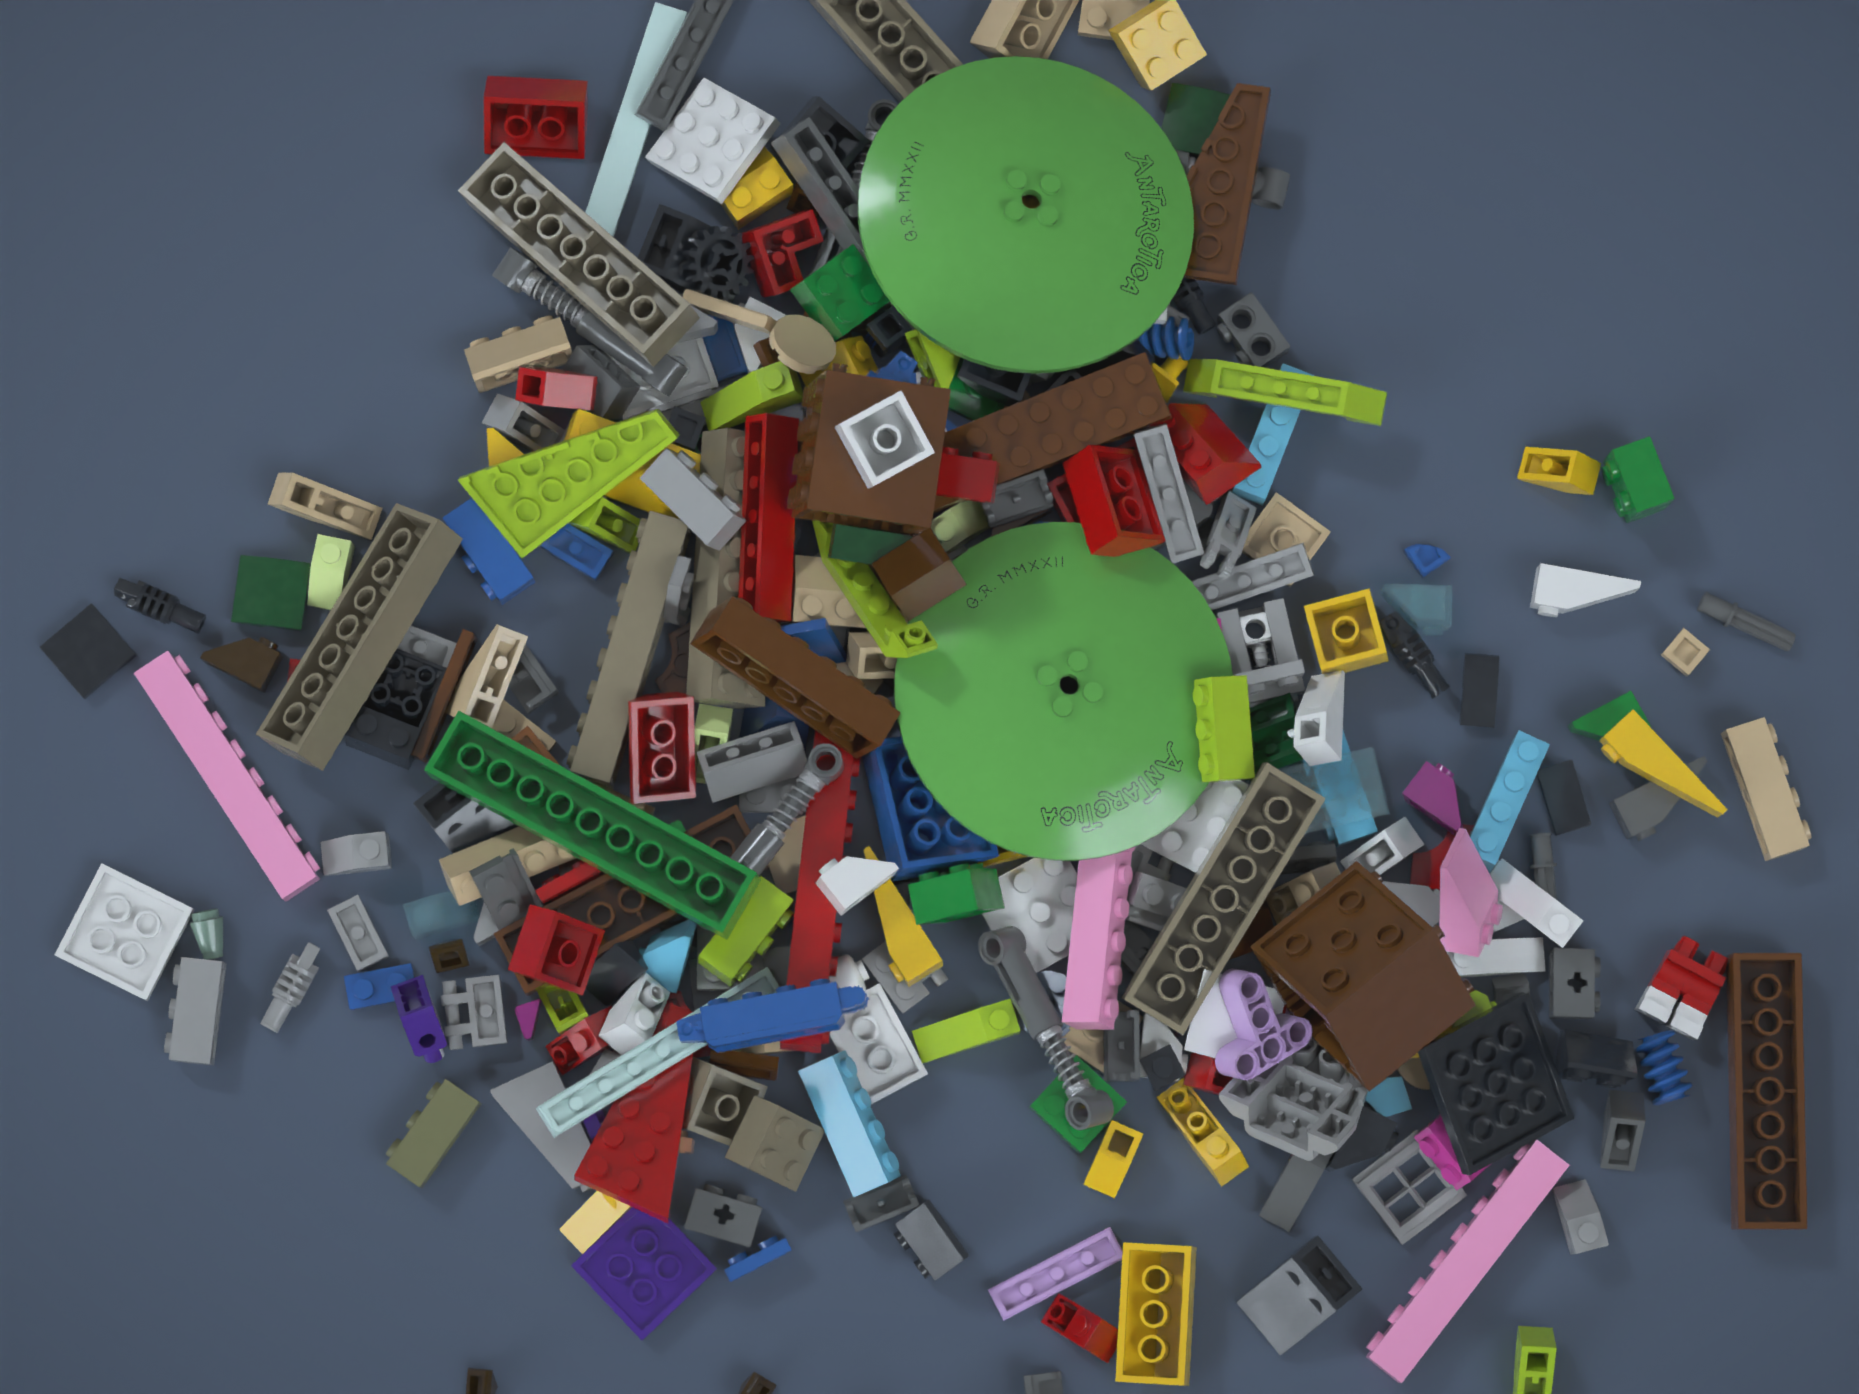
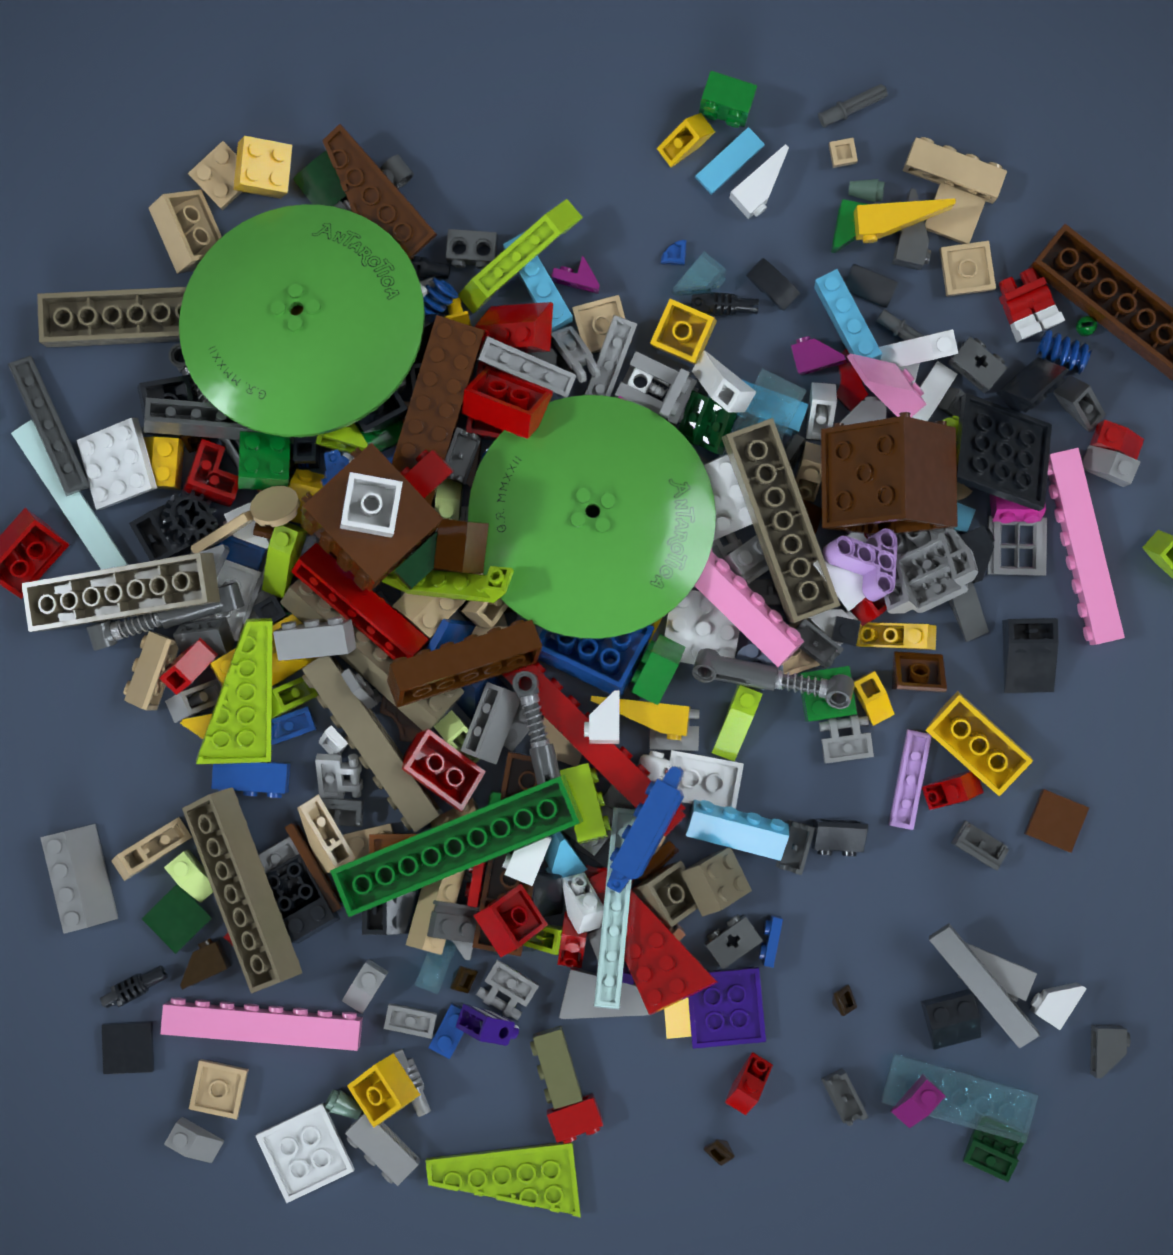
camera: 45 degrees left, 5 degrees up
(43, 802) = (193, 1141): none -> light grey slope
(120, 784) = (218, 1089): none -> tan plate
(232, 453) = (79, 878): none -> light grey slope
(261, 960) = (383, 1090): none -> yellow brick
(285, 1191) = (522, 1175): none -> lime wing
(392, 1197) = (575, 1119): none -> red brick
(528, 1018) = (534, 963): magenta slope -> none
(556, 636) = (331, 776): none -> light grey plate
(580, 1359) = (749, 1084): none -> red slope
(596, 608) = (332, 741): none -> white tile
(635, 916) = (526, 861): none -> white slope
(1036, 1173) = (846, 747): none -> light grey plate
(1182, 1187) = (918, 672): none -> reddish brown slope
(1223, 728) = (686, 443): lime brick -> none
(1315, 480) = (582, 280): none -> magenta slope
(1576, 536) = (730, 161): none -> medium azure tile
(1616, 1206) = (1117, 438): none -> red slope
(1666, 711) = (869, 190): none -> sand green cone
(1669, 889) = (967, 268): none -> tan plate
(1709, 1076) = (1086, 331): none -> green hinge
(1721, 837) = (961, 220): none -> tan tile

